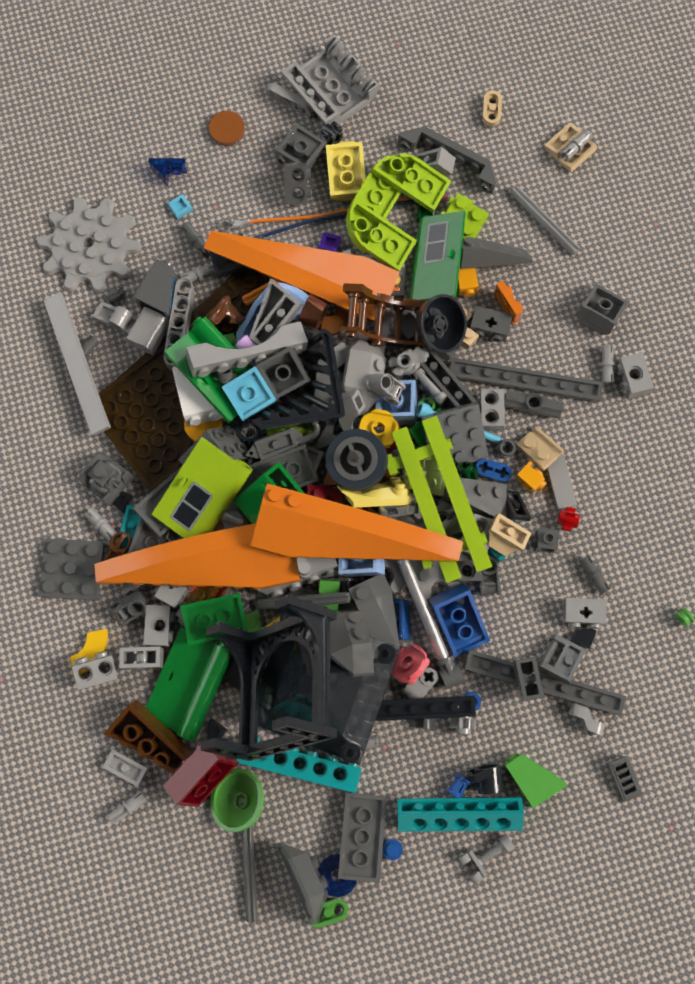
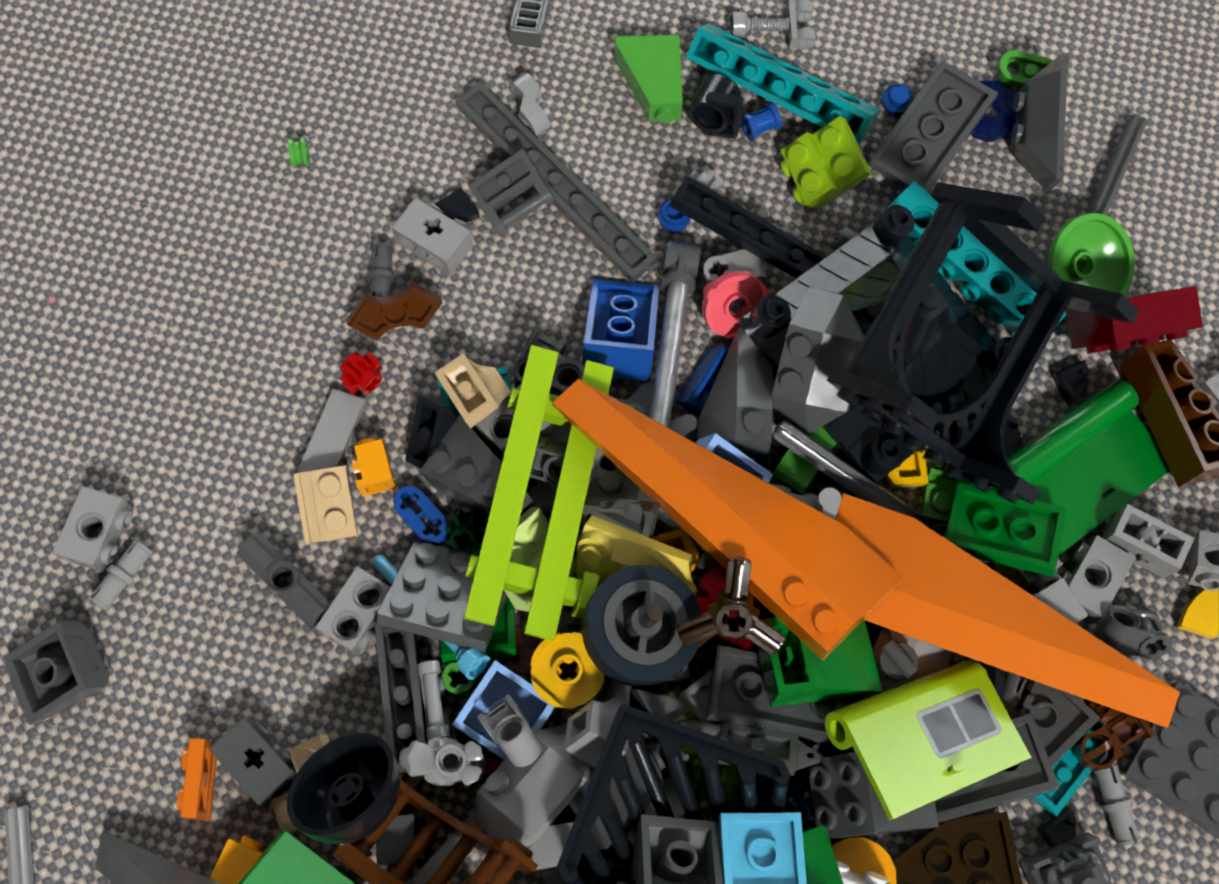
camera: 155 degrees left, 5 degrees down
(318, 480) = (733, 597): none -> dark brown bush
(409, 776) = (824, 164): none -> lime plate
(506, 442) = (377, 528): dark grey plate -> none
(526, 379) = (269, 631): dark grey plate -> none
(528, 679) = (579, 181): dark grey brick -> none
(546, 540) = (415, 360): dark grey brick -> none
(580, 552) = (380, 314): none -> reddish brown tile

